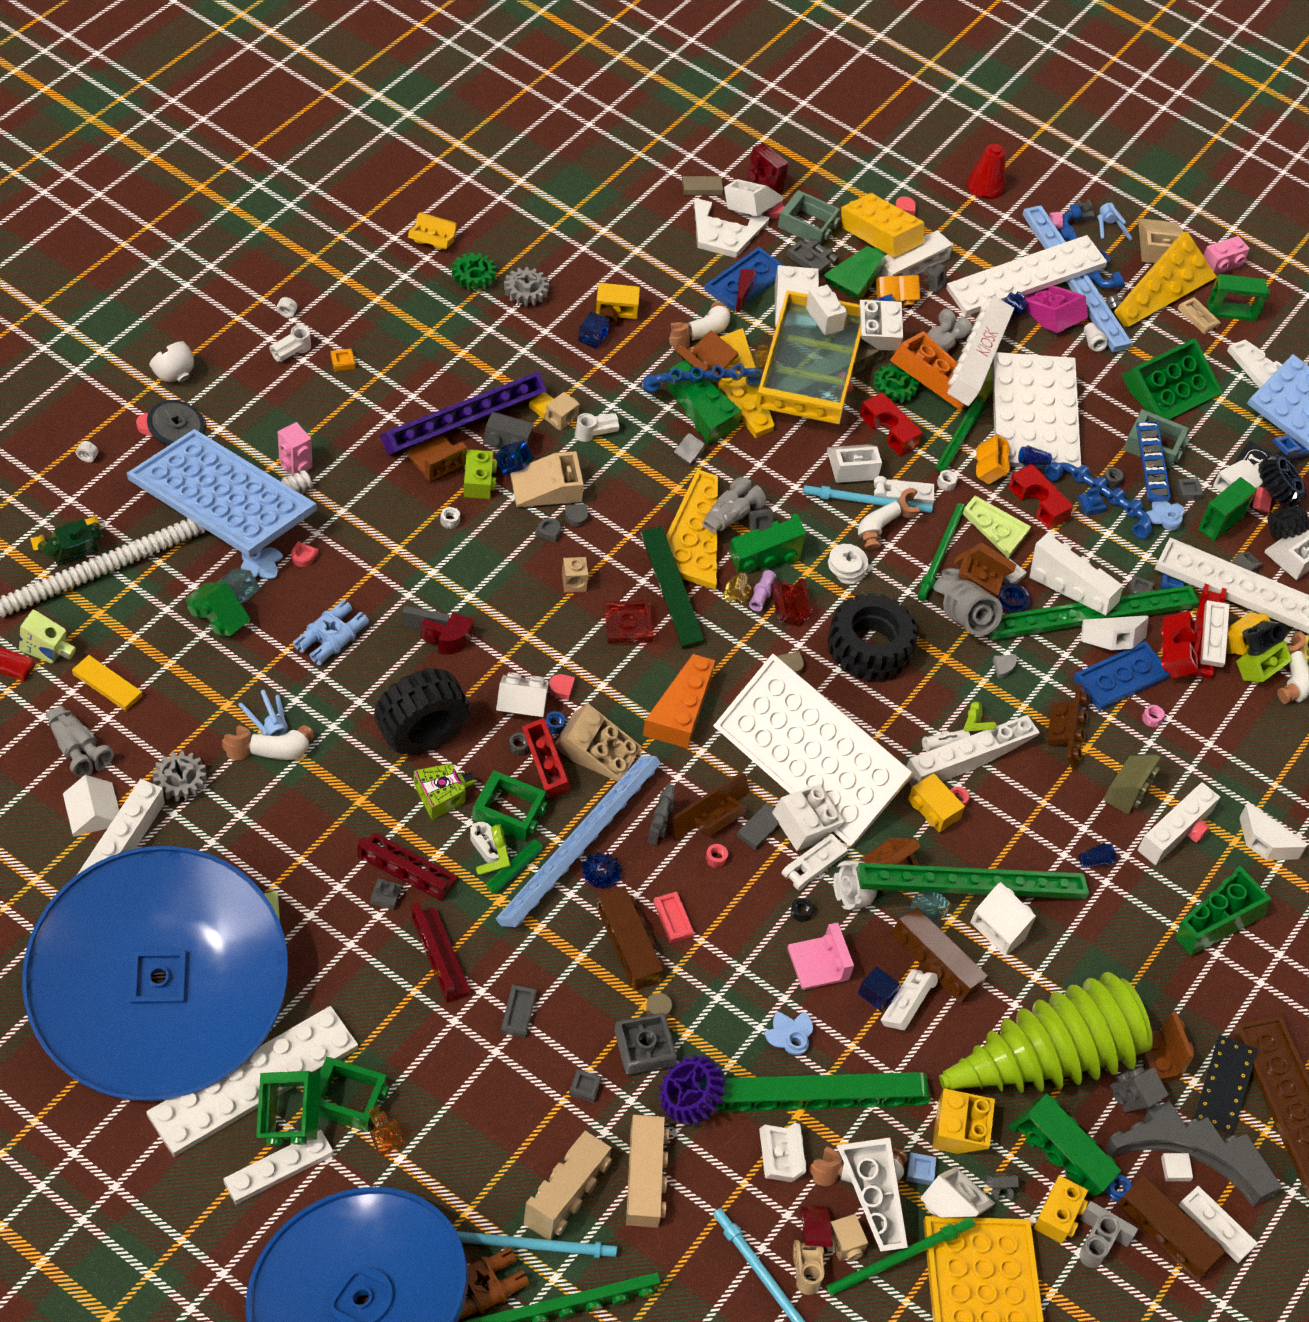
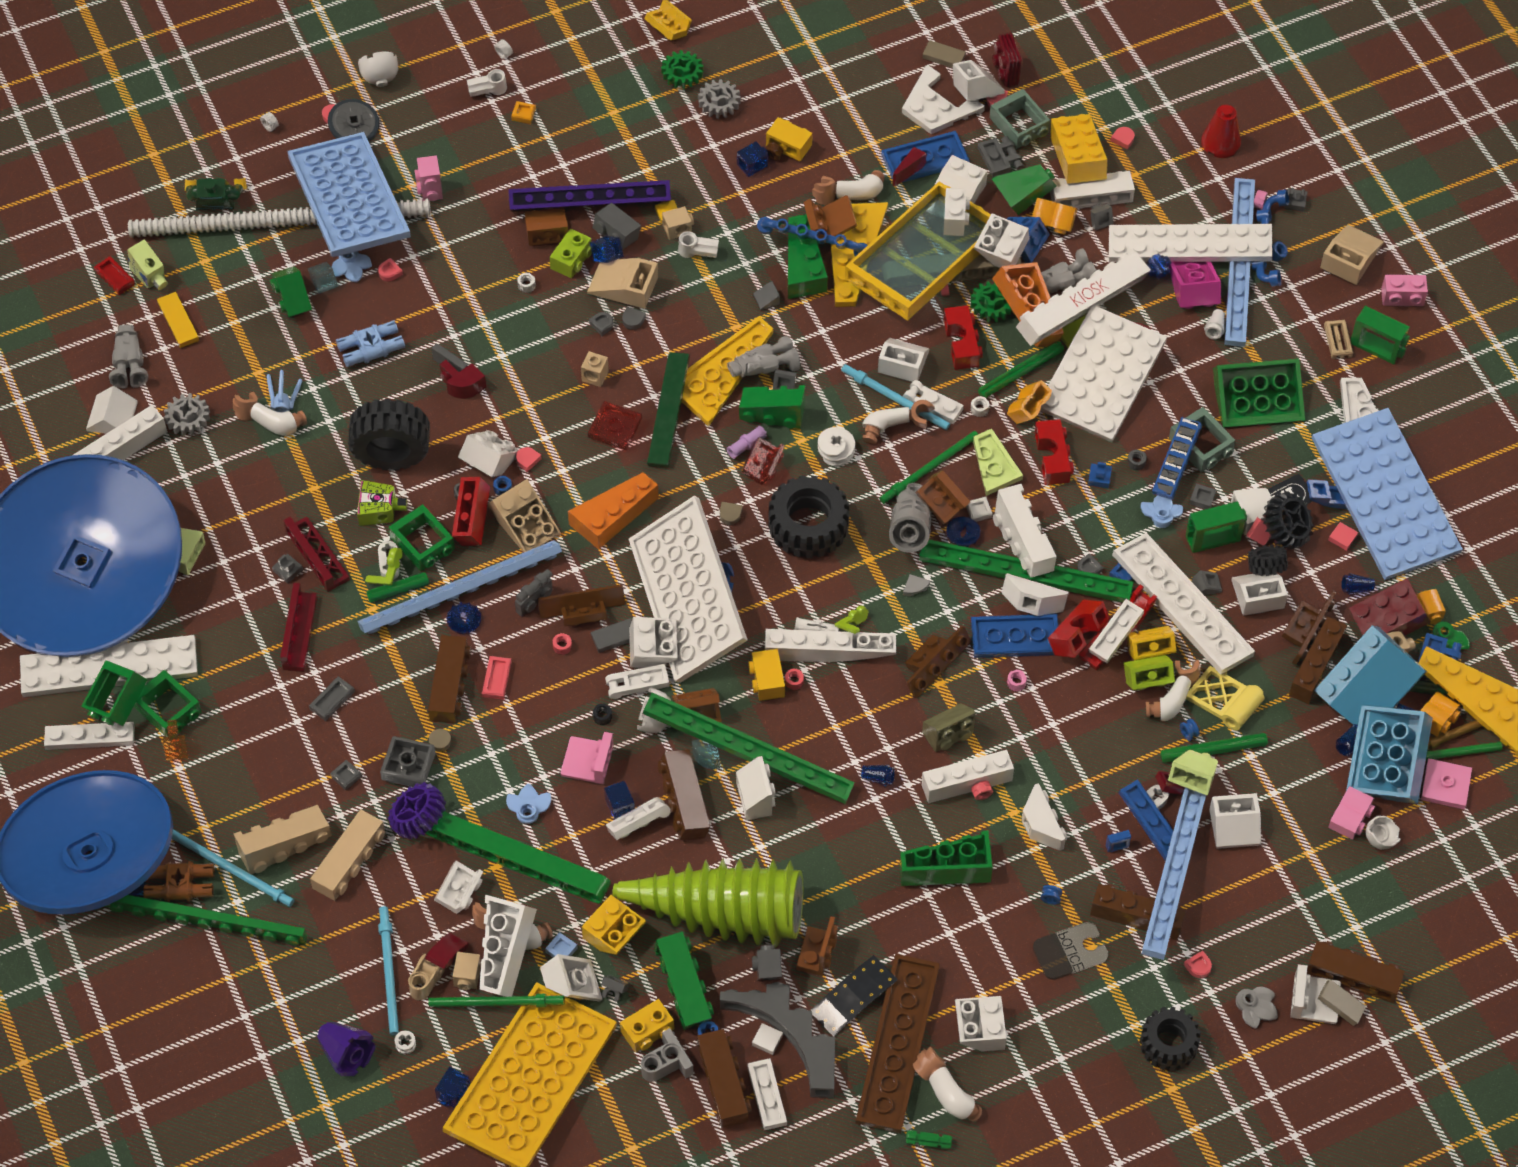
camera: 35 degrees right, 5 degrees up
(737, 587) = (724, 431): clear yellow tile -> none
(1035, 456) = (1068, 413): clear blue cone -> none
(1109, 214) = (1318, 212): light blue plant -> none
(1113, 302) = (1258, 298): dark grey plate -> none
(1117, 496) = (1117, 462): blue bar -> none
(1171, 277) = (1331, 292): yellow wing -> none
(1264, 636) = (1150, 650): black piece -> none

